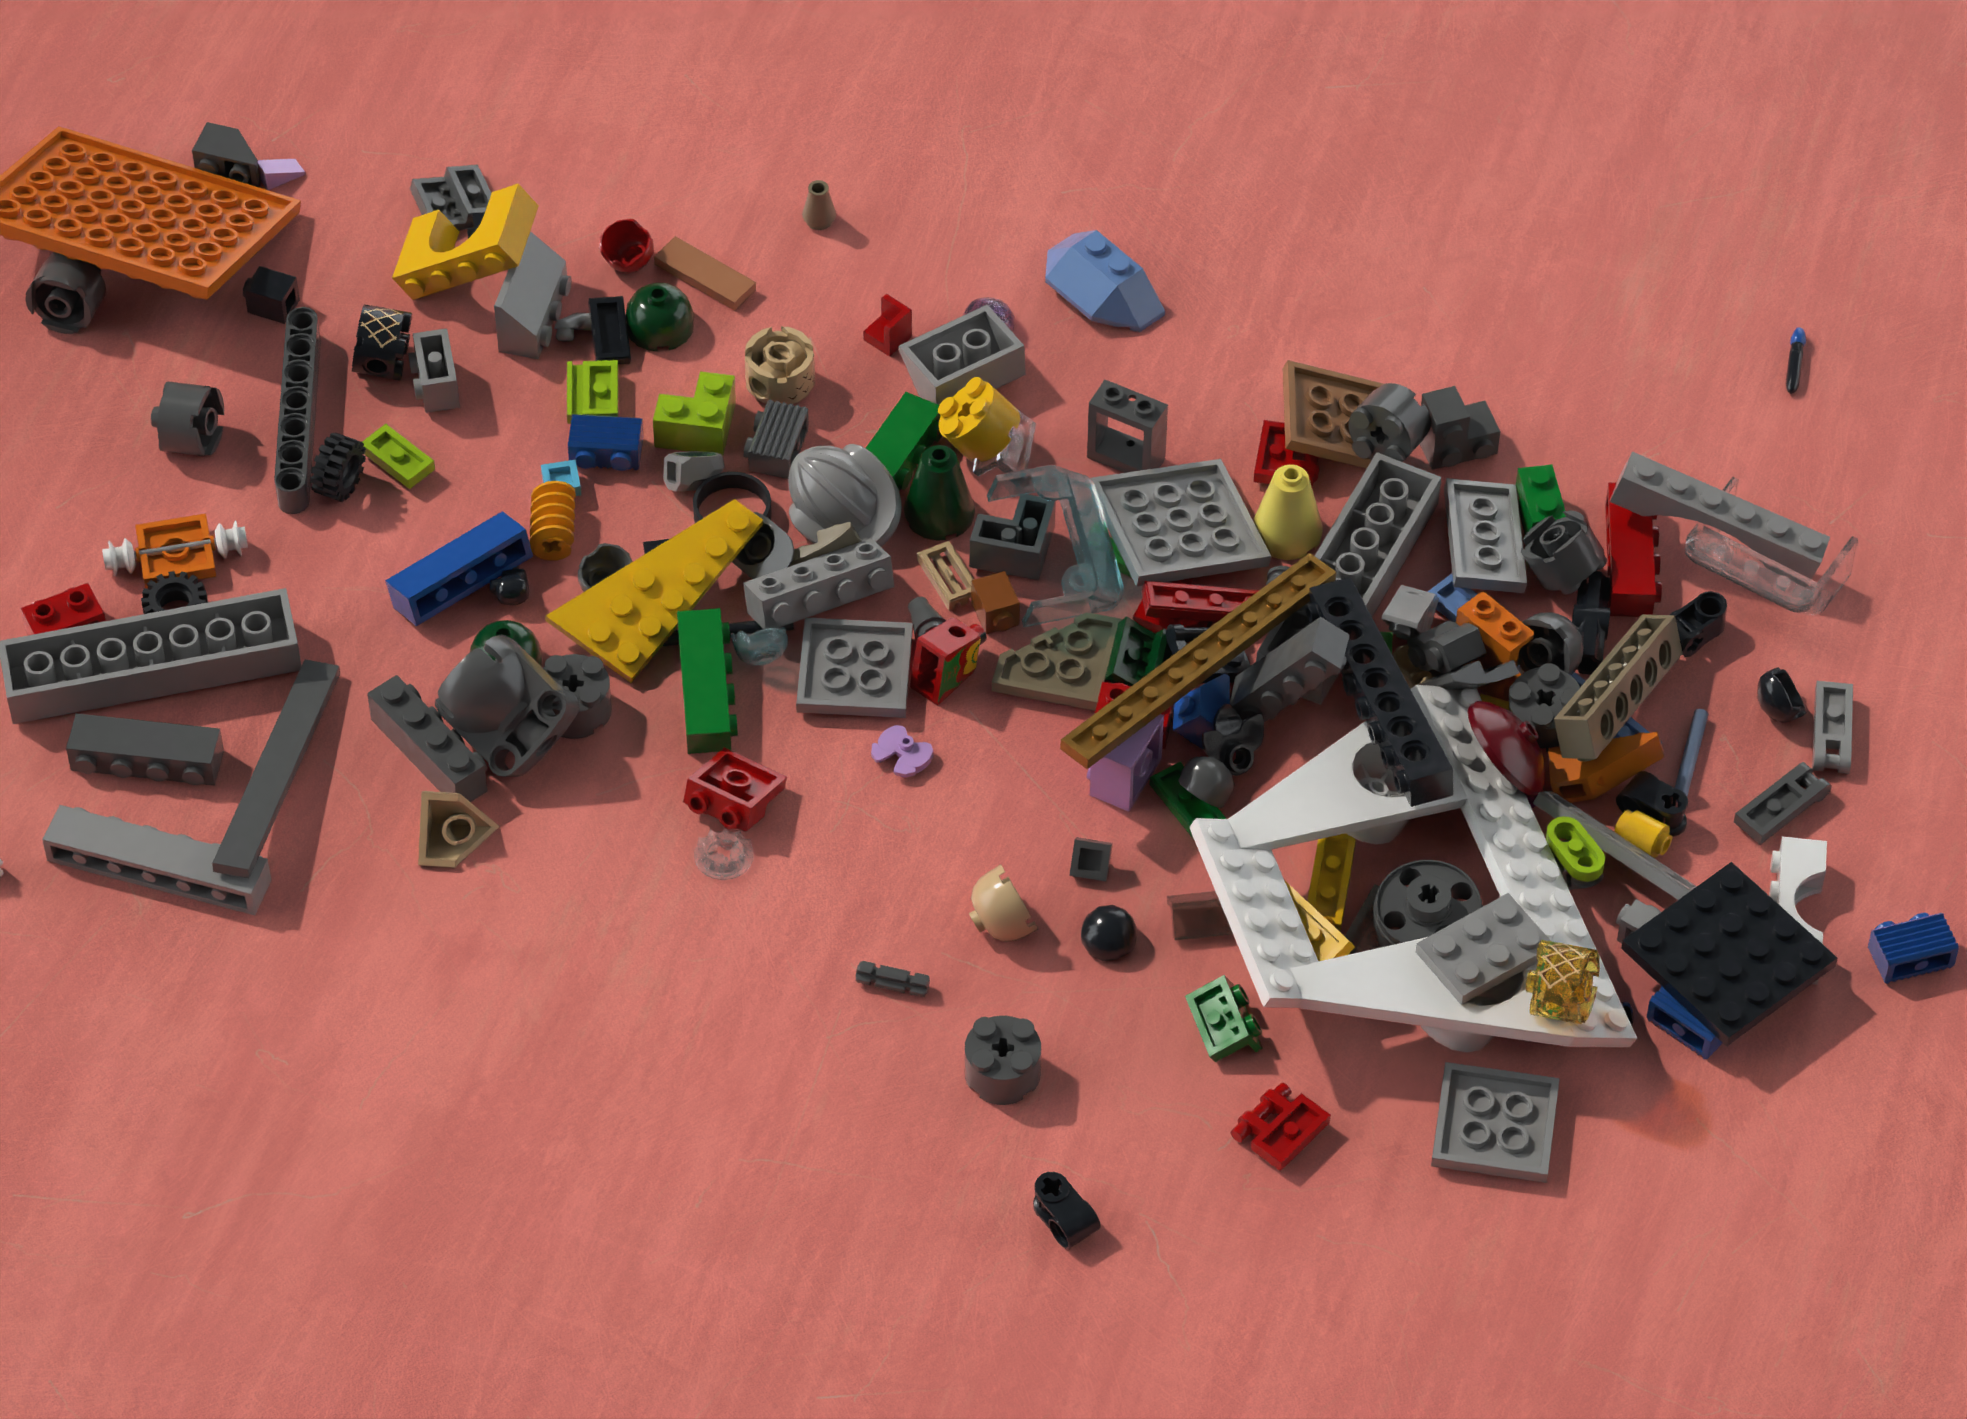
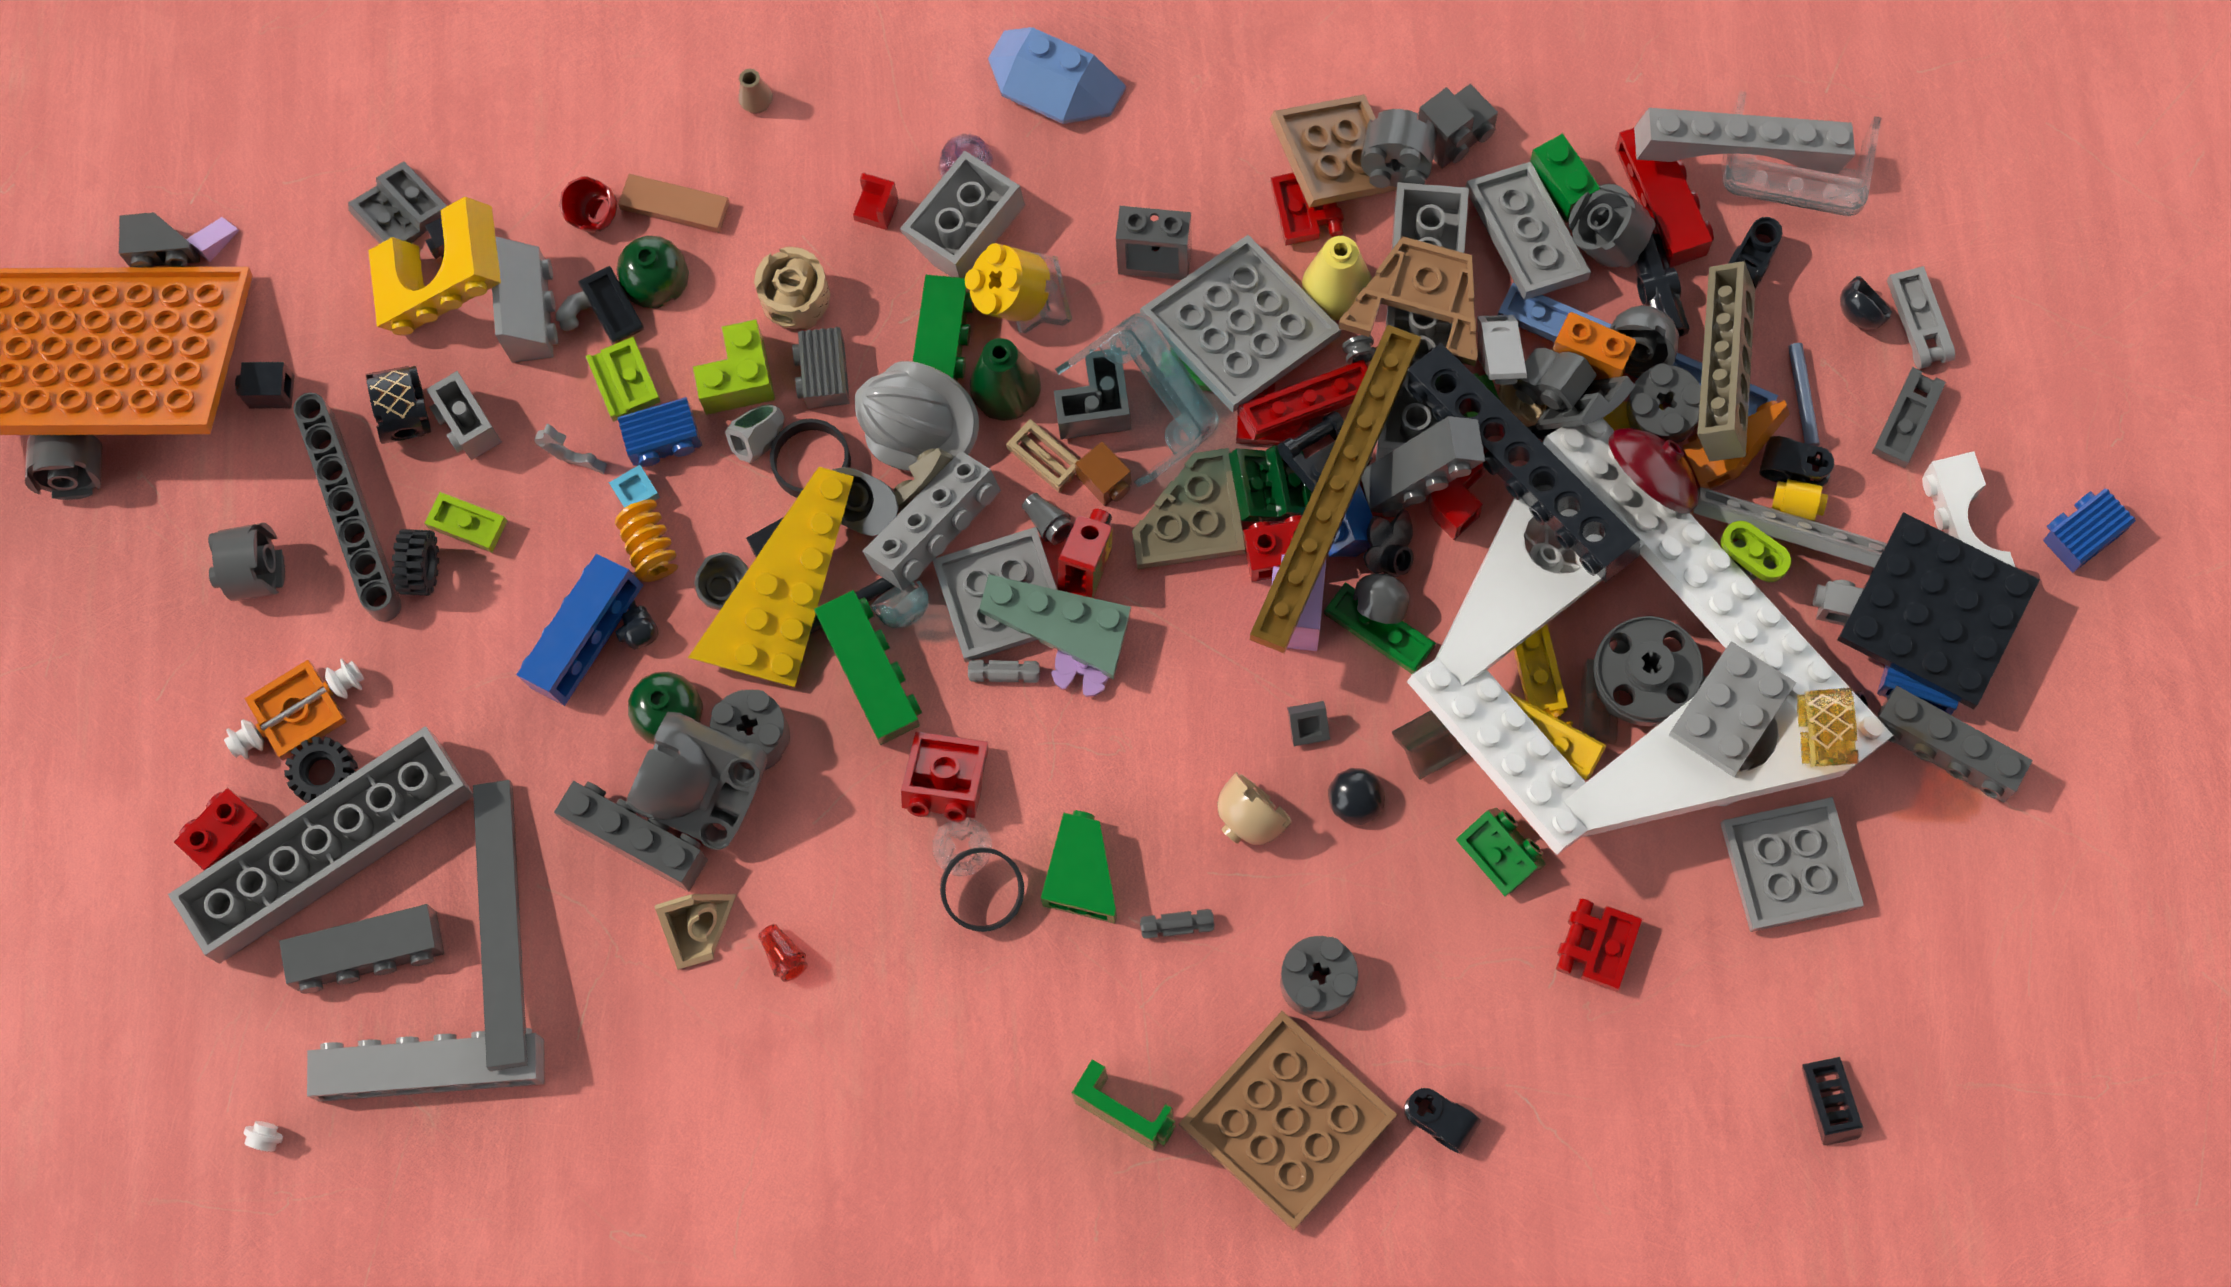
camera: 15 degrees left, 20 degrees up
(498, 410) = (553, 442): none -> light grey helmet
(519, 881) = (782, 953): none -> clear red cone
(725, 850) = (1012, 913): none -> black tyre
(784, 1119) = (1088, 1096): none -> green panel
(821, 905) = (1079, 870): none -> green slope
(829, 729) = (1003, 671): none -> light grey axle
(909, 706) = (1070, 622): none -> sand green wing
(919, 1166) = (1287, 1120): none -> medium nougat plate
(1315, 723) = (1455, 506): none -> red brick
(1359, 532) = (1424, 282): none -> medium nougat wing
(1441, 1350) = (1840, 1132): none -> black slope
(1695, 1074) = (1953, 745): none -> dark grey brick

